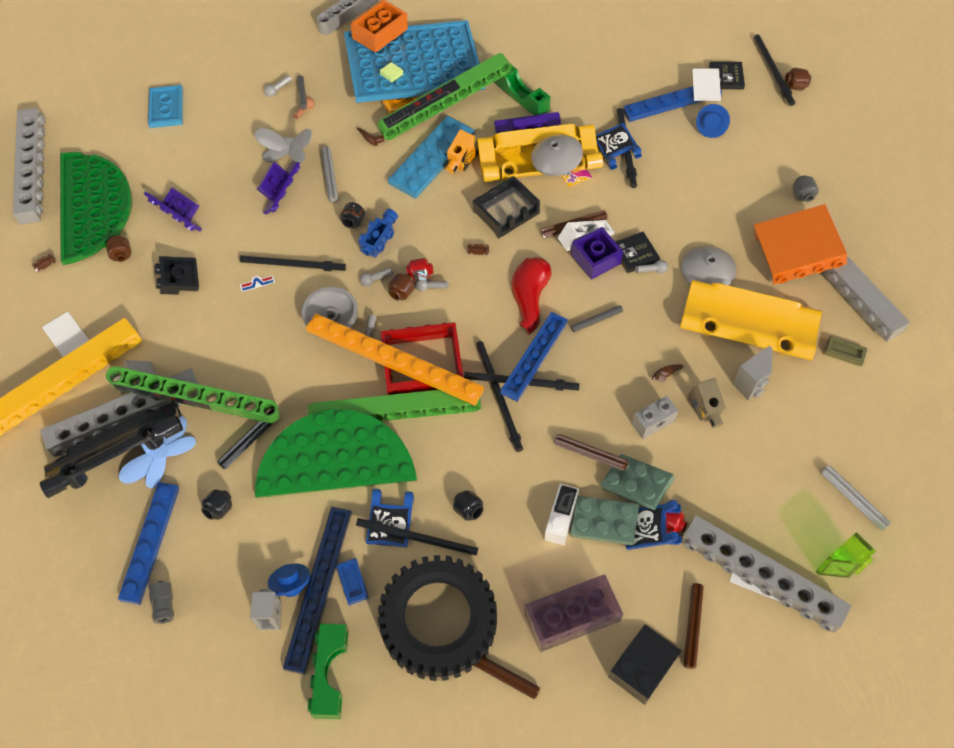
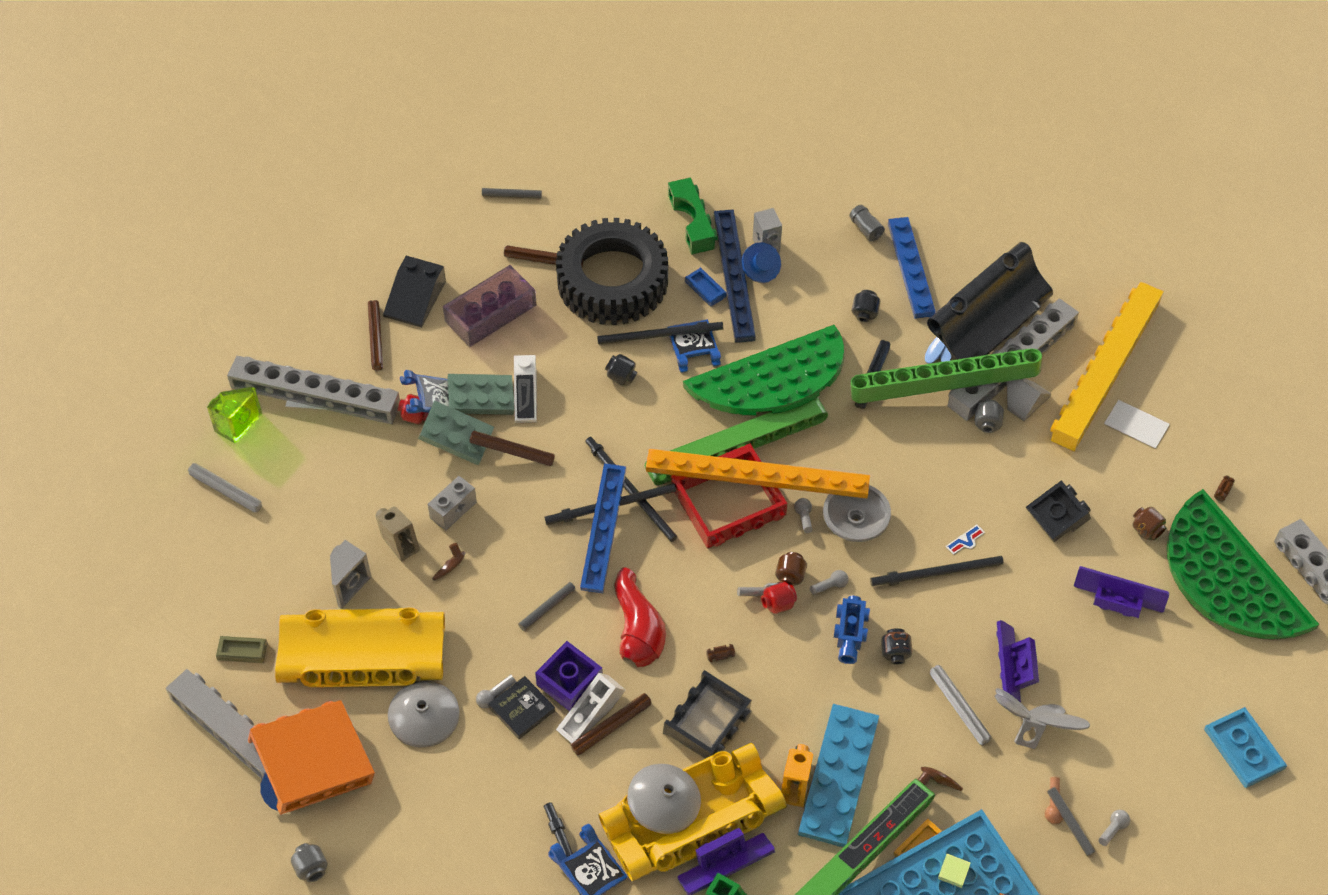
camera: 160 degrees right, 5 degrees down
(177, 363) = (989, 416): none -> dark grey head

